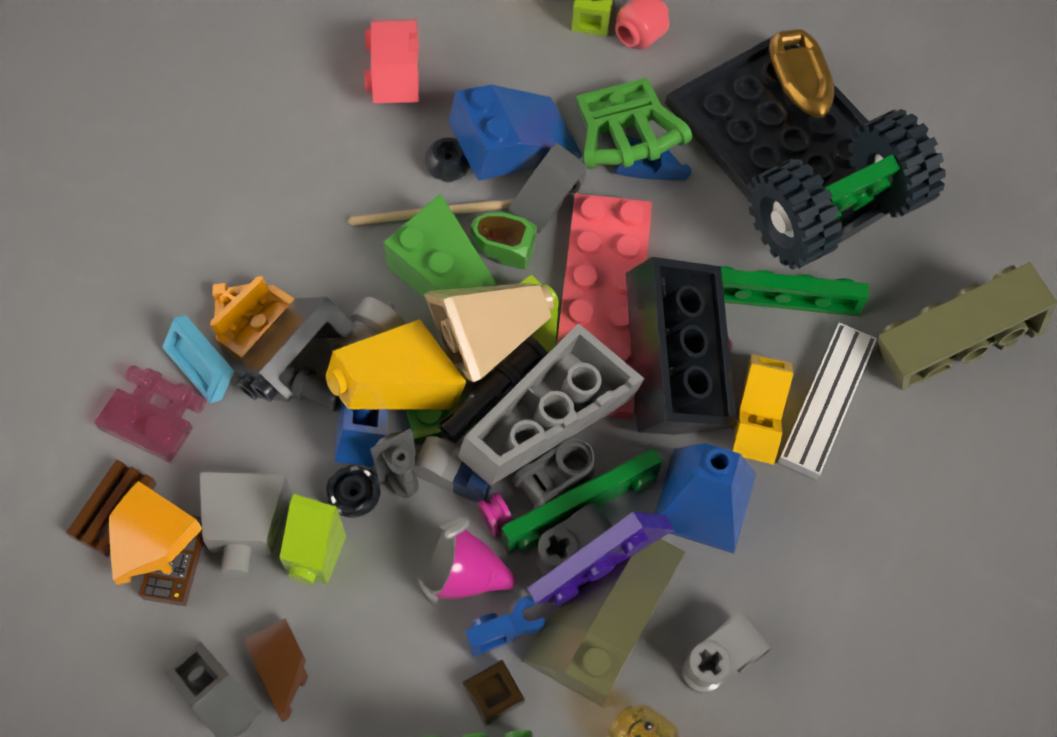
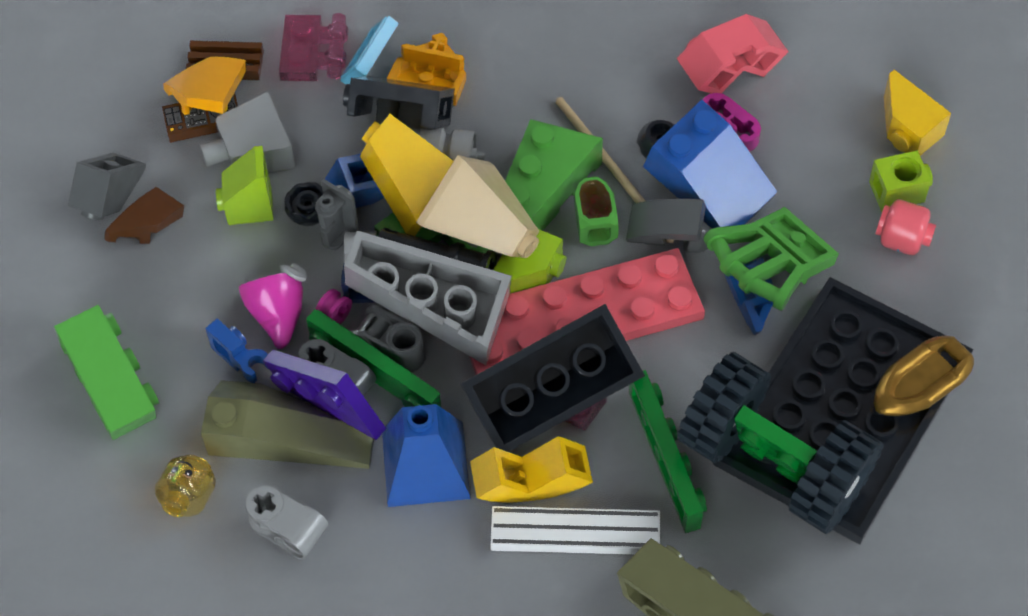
camera: 70 degrees right, 5 degrees down
(446, 92) = (736, 117): none -> dark pink beam
(493, 692) = (186, 370): dark brown tile -> none

